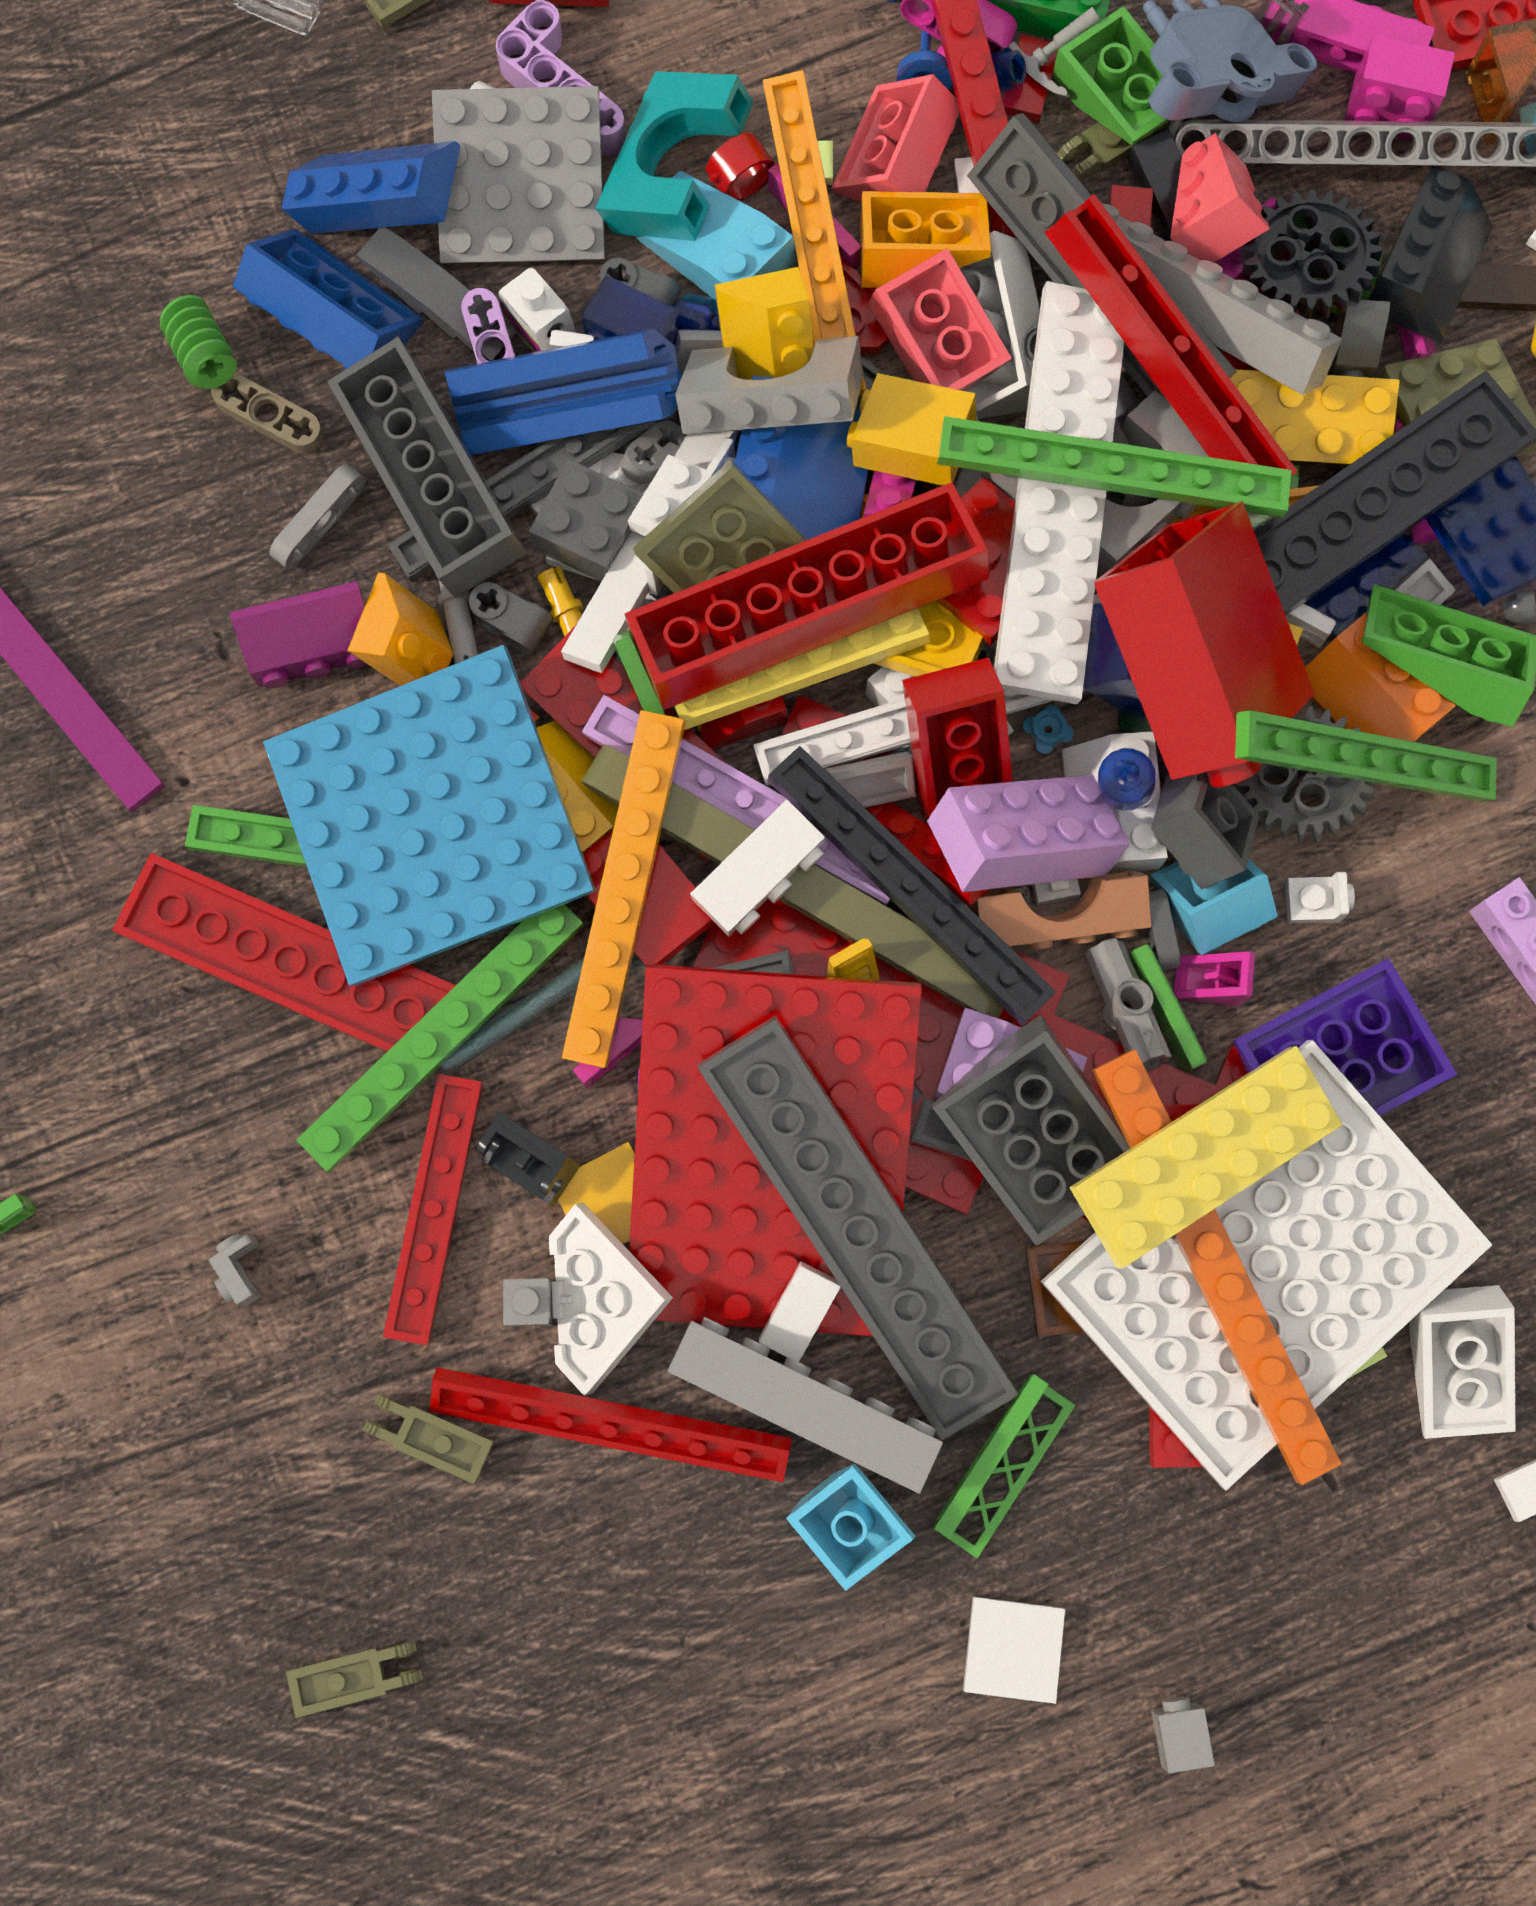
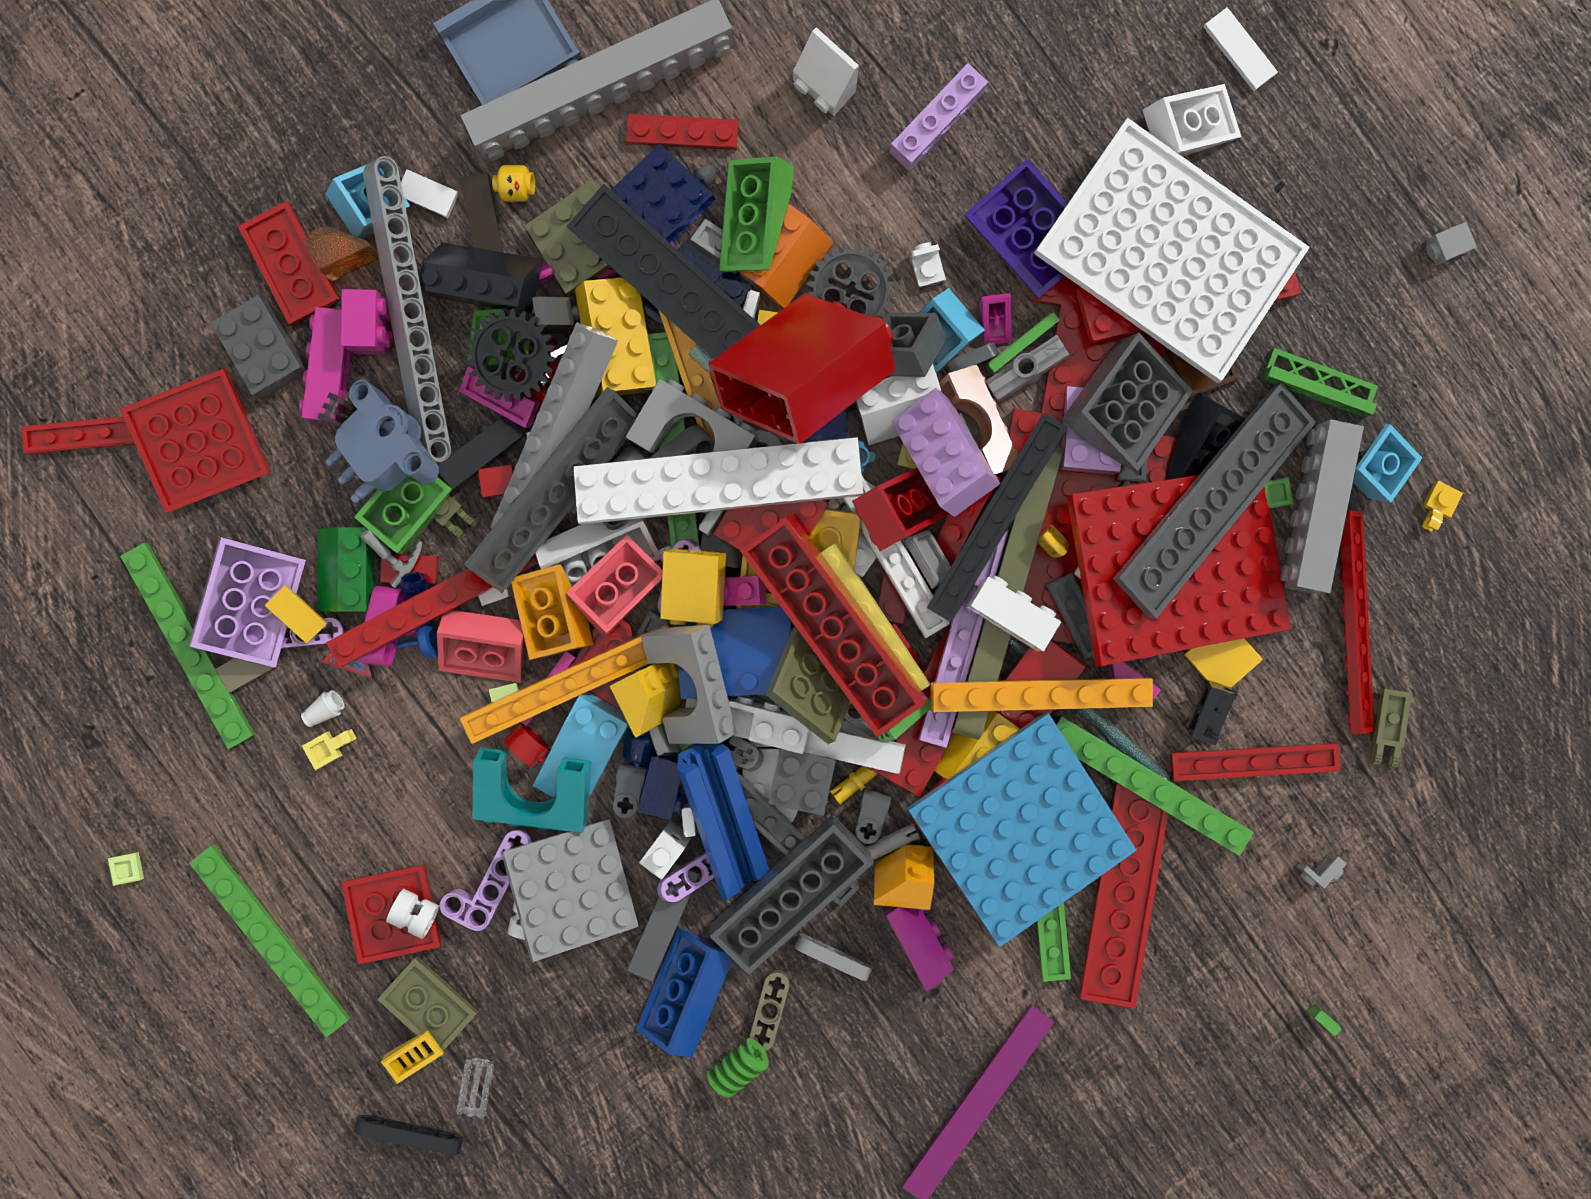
camera: 105 degrees left, 10 degrees up
(347, 1679) = (1538, 736): olive hinge -> none
(372, 188) = (602, 983): blue slope -> none
(527, 1302) = (1298, 689): light grey brick -> none
(598, 1297) = (1286, 647): white plate -> none
(765, 1616) = (1441, 503): none -> yellow plate
(799, 1312) = (1267, 524): white tile -> none
(843, 1352) = (1278, 493): none -> bright green tile
(969, 1250) = (1201, 436): none -> black wedge
(1014, 1649) = (1423, 352): white tile -> none
(1113, 466) = (703, 450): bright green plate -> none
(1126, 765) = (907, 401): clear blue head -> none
(1162, 338) = (608, 432): red tile -> none
(1205, 1157) = (1129, 298): light yellow plate -> none
(1215, 202) = (485, 426): coral wedge -> none
(1228, 1290) = (1184, 281): orange plate -> none
(1364, 756) = (850, 253): bright green plate -> none

